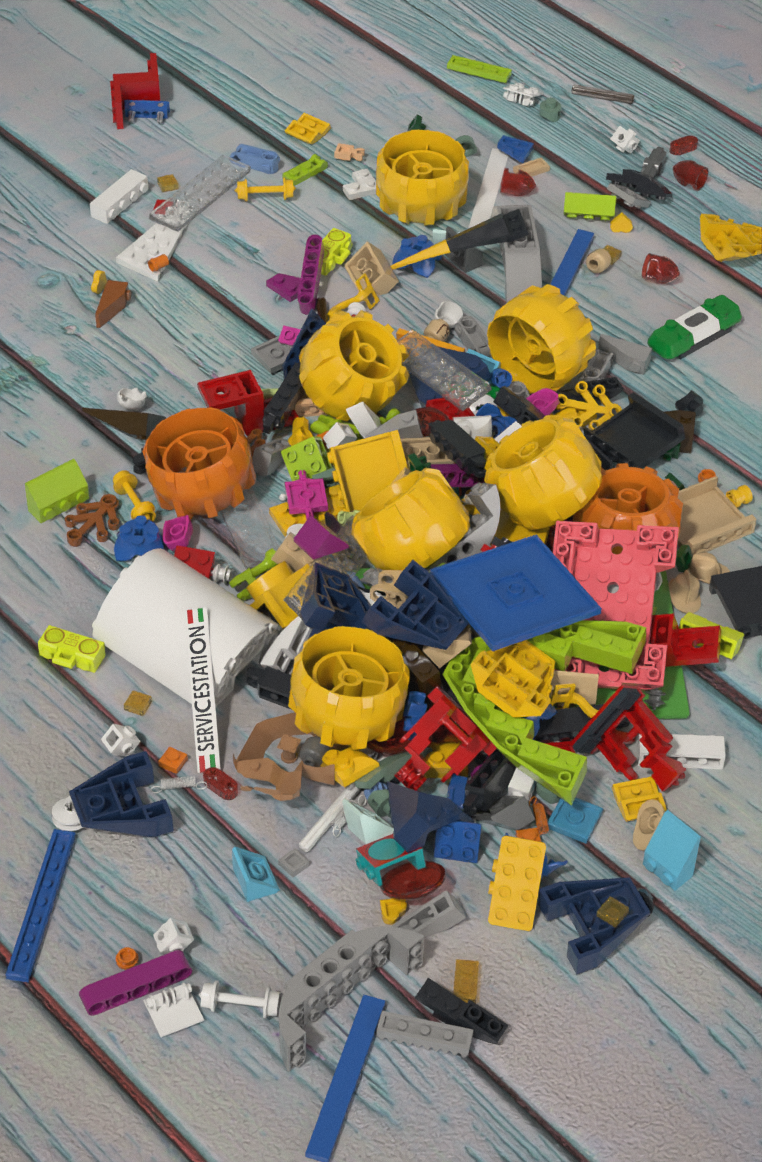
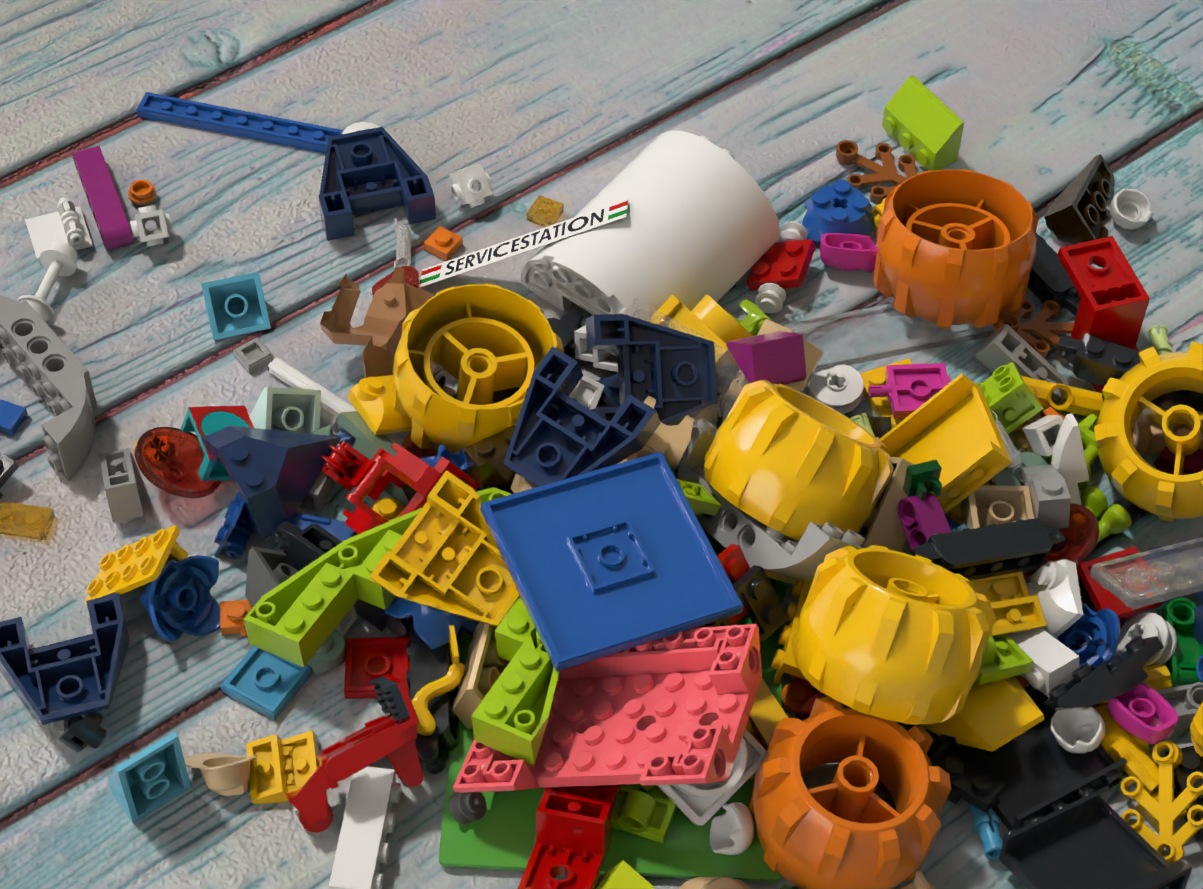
camera: 95 degrees right, 5 degrees up
(71, 649) = (635, 138): neon yellow piece -> none
(612, 911) = (43, 666): clear yellow plate -> none

